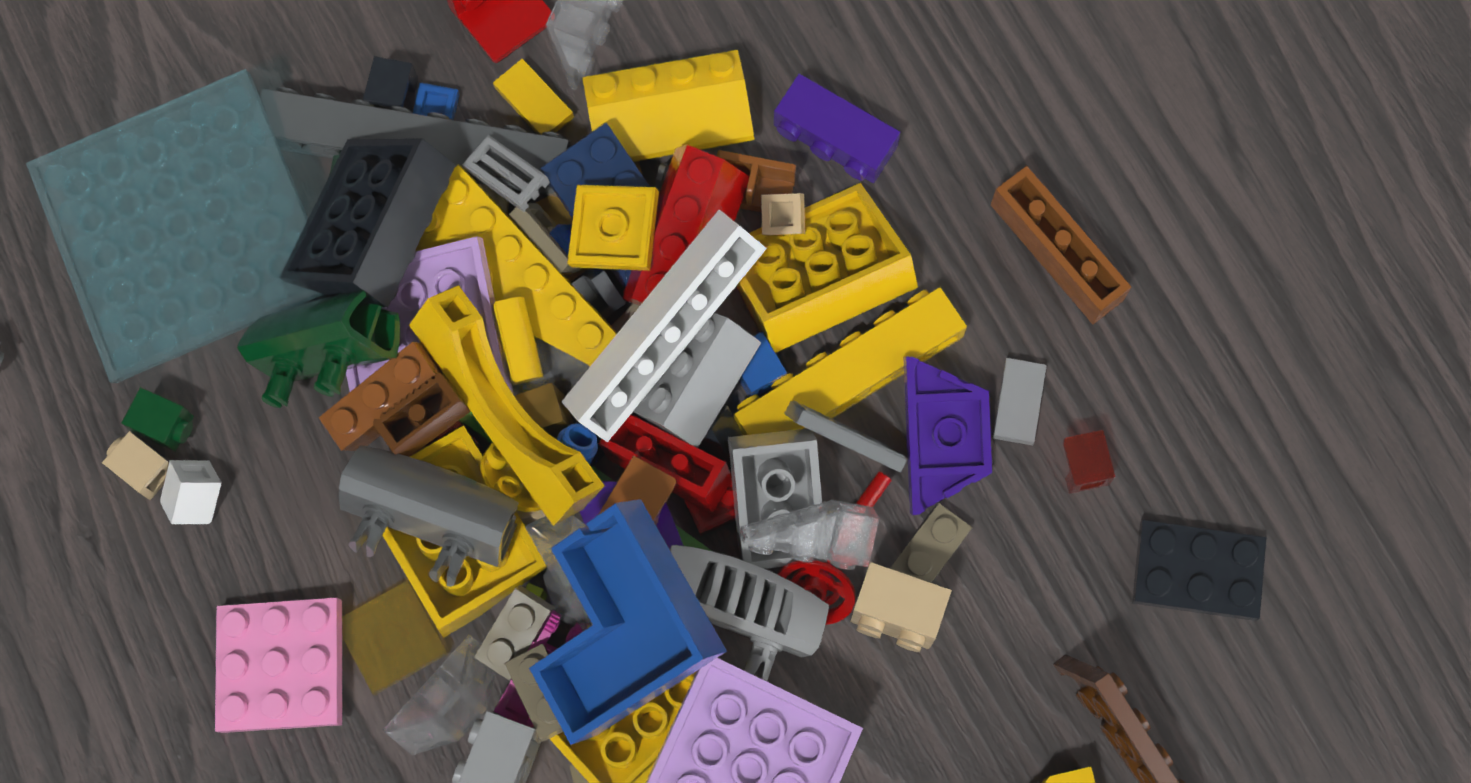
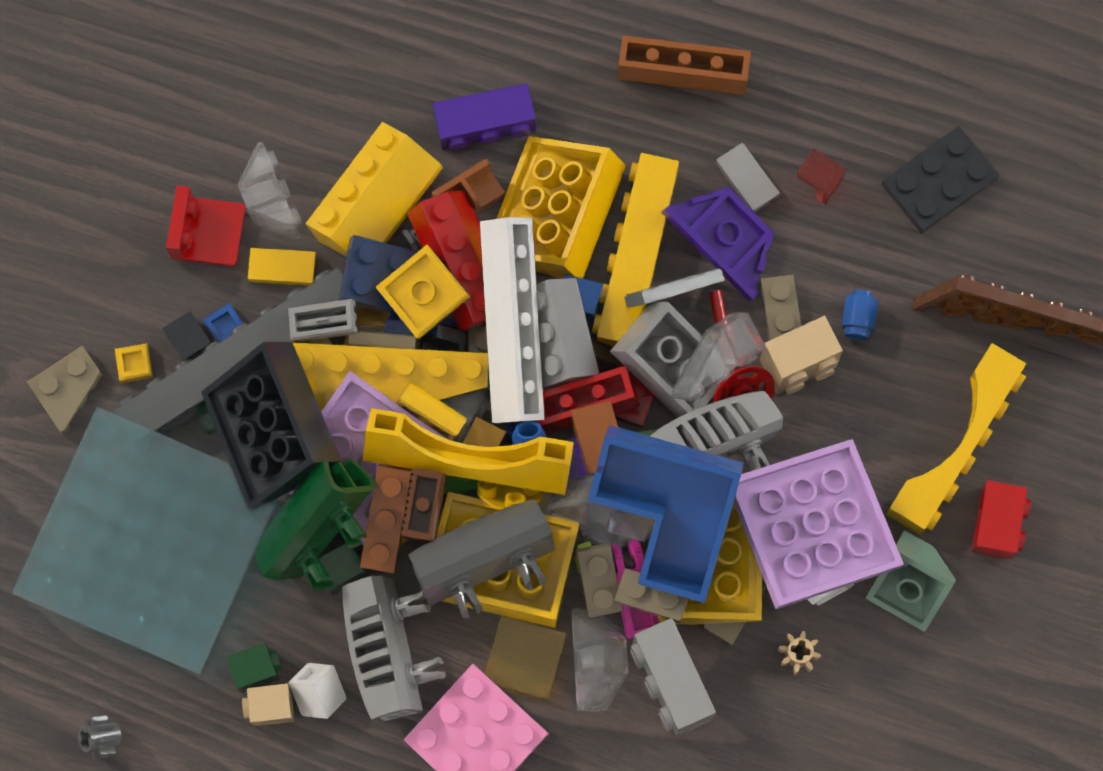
camera: 45 degrees left, 0 degrees up
(255, 35) = (65, 387): none -> dark tan wing
(276, 510) = (381, 647): none -> light grey piece
(307, 405) = (343, 567): none -> dark green brick
(330, 67) = (134, 363): none -> yellow tile
(783, 214) = (506, 195): tan plate -> none
(996, 622) = (859, 315): none -> blue brick

